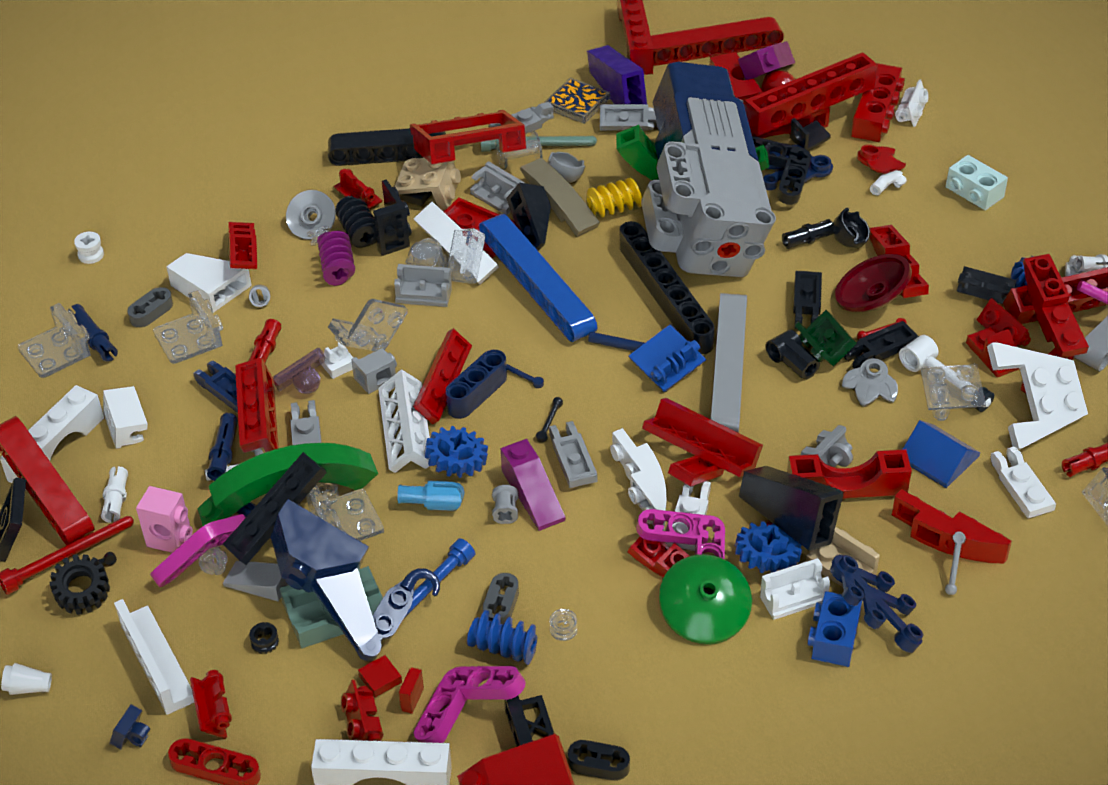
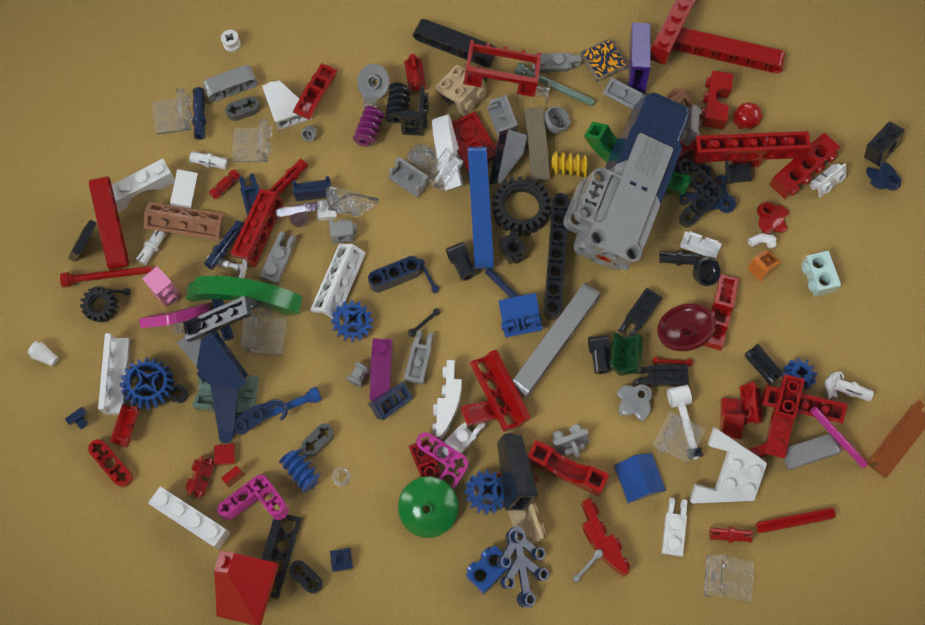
camera: 30 degrees right, 25 degrees up
(116, 287) = (230, 83): none -> light grey beam
(139, 373) = (208, 160): none -> white pin
(146, 445) = (183, 220): none -> nougat fence
(177, 389) = (224, 184): none -> red axle
(212, 639) = (141, 388): none -> blue gear
(292, 352) = (311, 190): none -> dark blue hinge
(434, 495) = (321, 346): dark azure arm -> none
(445, 368) = (378, 256): red tile -> none
(546, 334) = (459, 257): none -> black piece
(567, 515) = (380, 400): none -> dark blue slope
(587, 238) = (521, 186): none -> black tyre
(606, 300) = (508, 242): none -> black brick
(633, 717) = (341, 560): none -> dark blue tile
(766, 60) = (751, 93): magenta slope -> none
(794, 588) = (483, 529): white hinge -> none
(811, 209) = (695, 243): none -> white hinge
(907, 202) = (763, 265): none -> orange slope
(944, 52) = (884, 143): none -> black brick
(969, 81) = (884, 177): none -> dark blue plate

